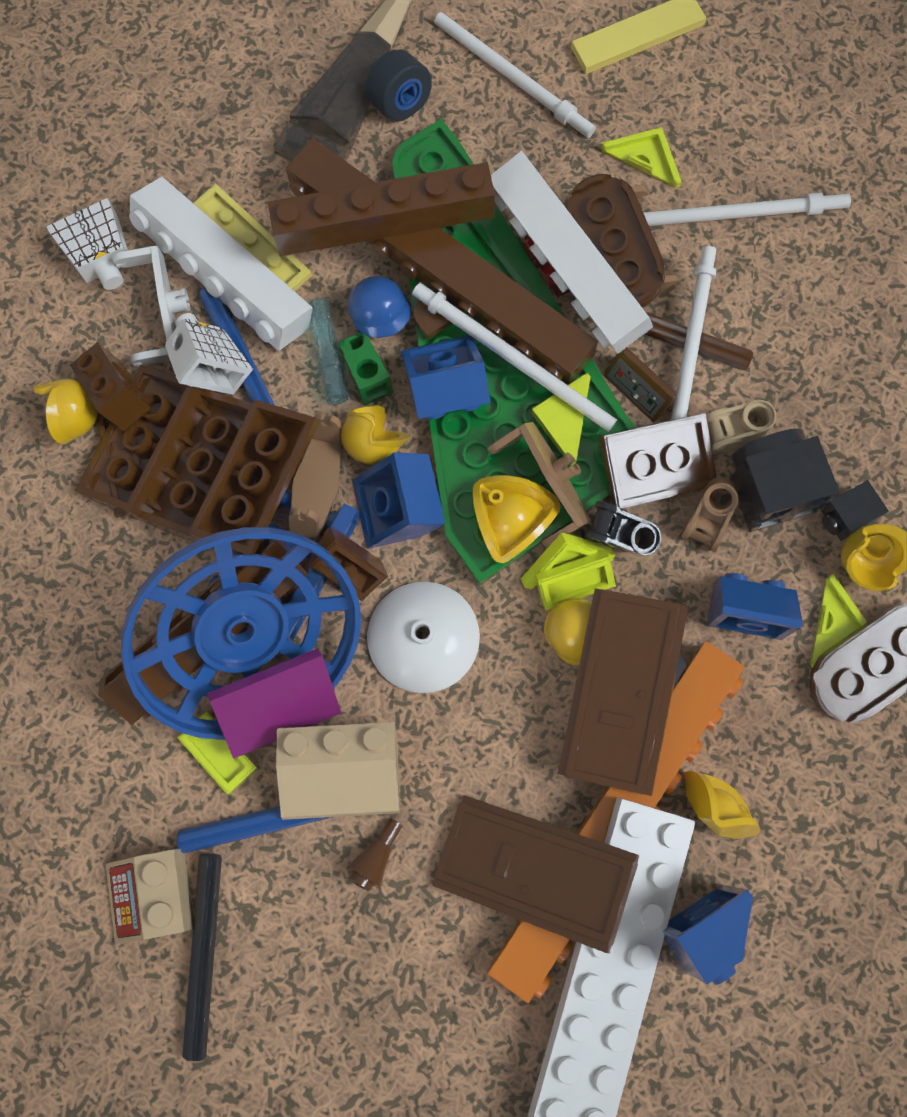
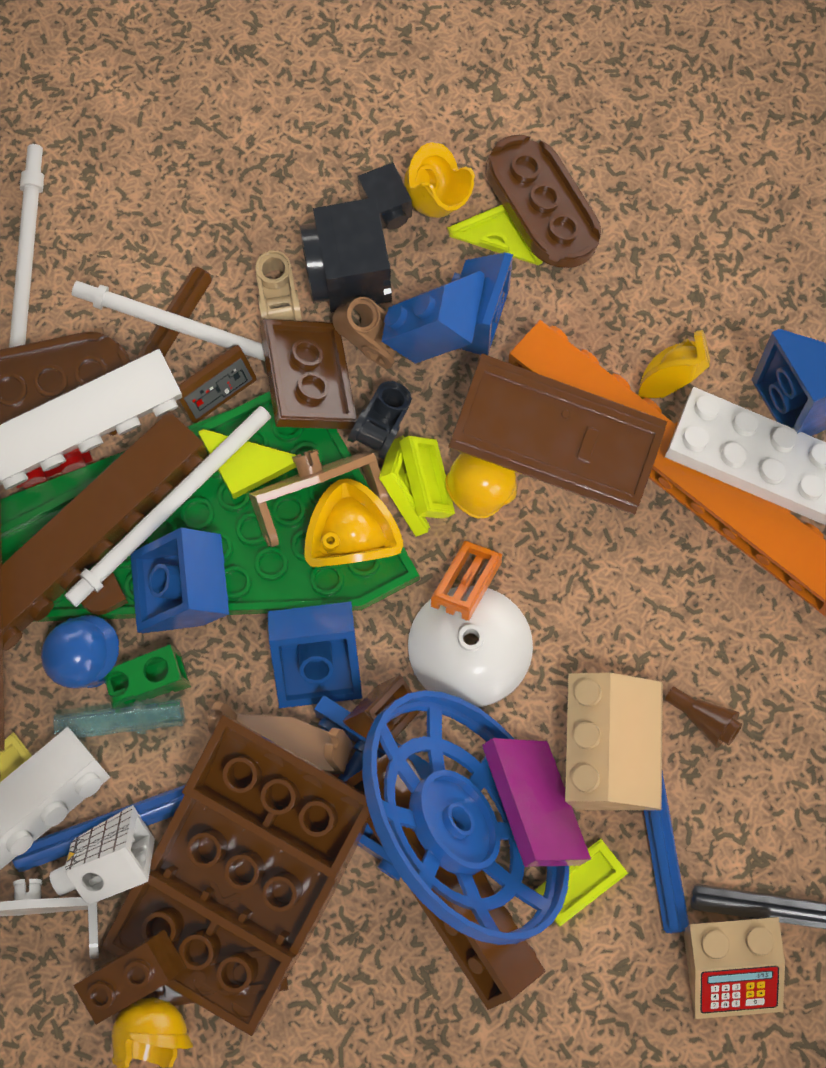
camera: 85 degrees left, 5 degrees down
(366, 438) = (237, 678): yellow helmet -> none
(472, 637) = (455, 603): none -> orange tile
(537, 873) = (734, 547): reddish brown piece -> none
(727, 564) = (435, 319): none -> blue slope

